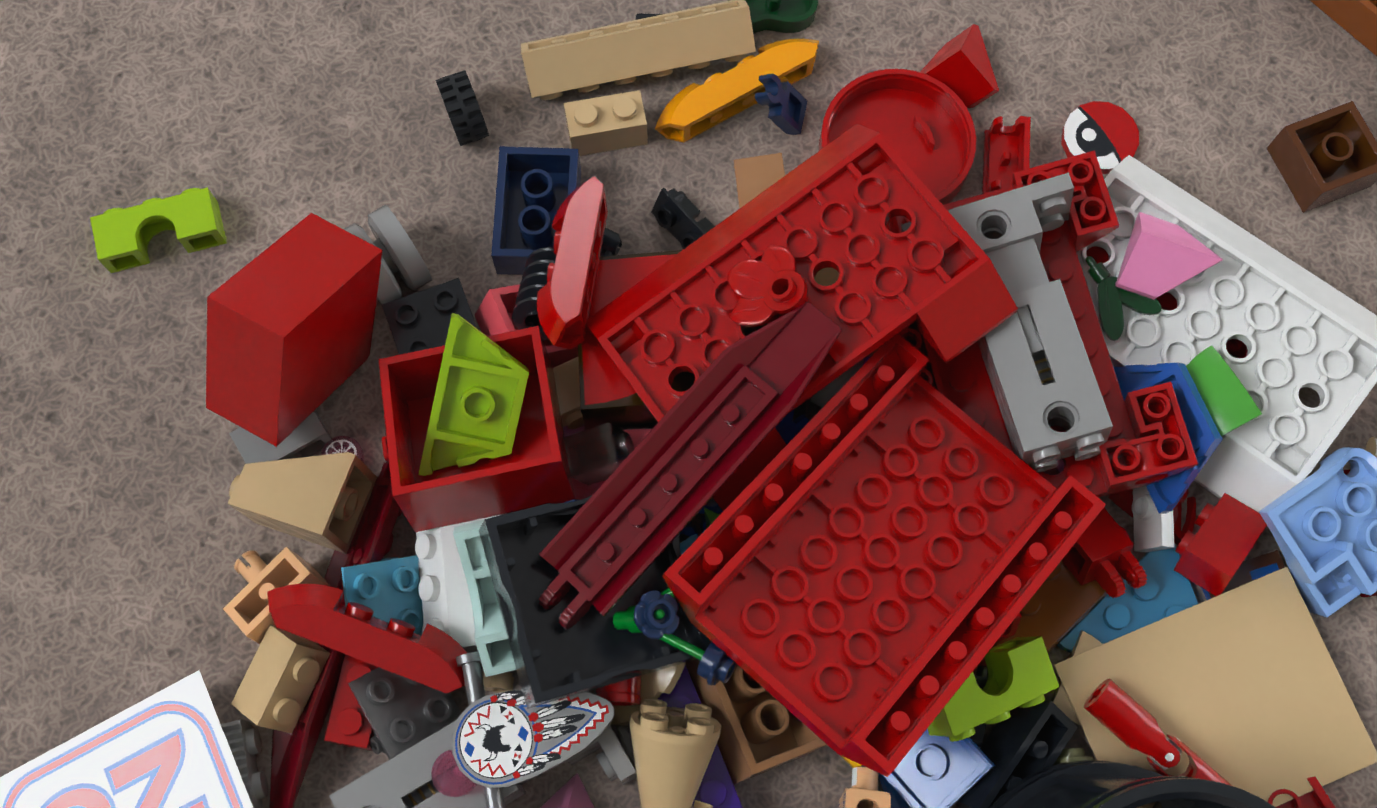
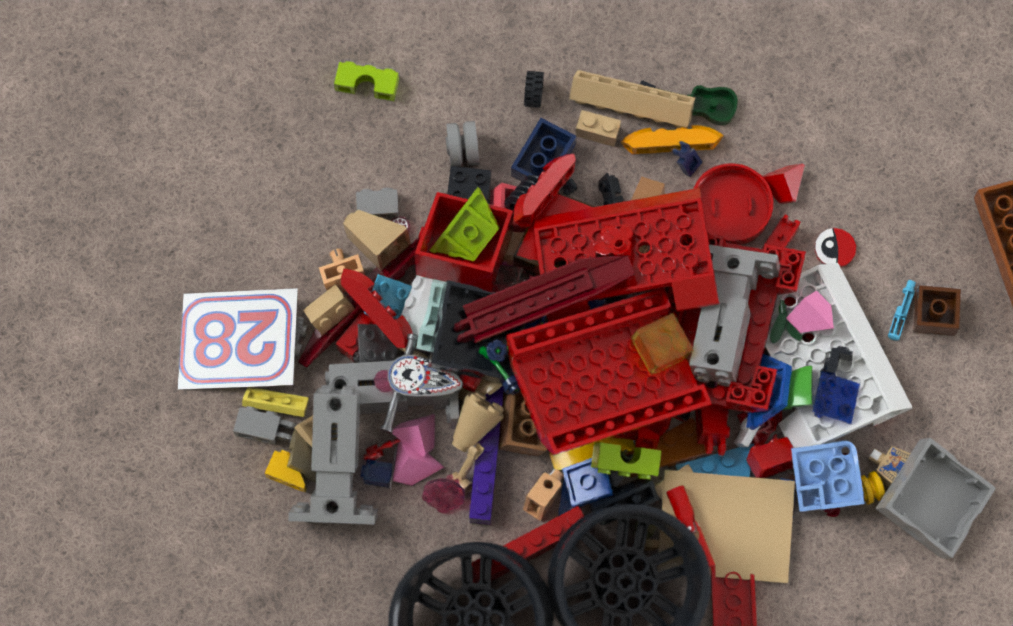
camera: 30 degrees right, 0 degrees up
(291, 328) = (406, 160): red container -> none
(953, 438) = (662, 344): none -> clear yellow brick
(1247, 319) = (831, 363): none -> black bracket
(1267, 186) = (902, 311): none -> medium azure piece
(1288, 382) = (835, 398): none -> clear blue hinge

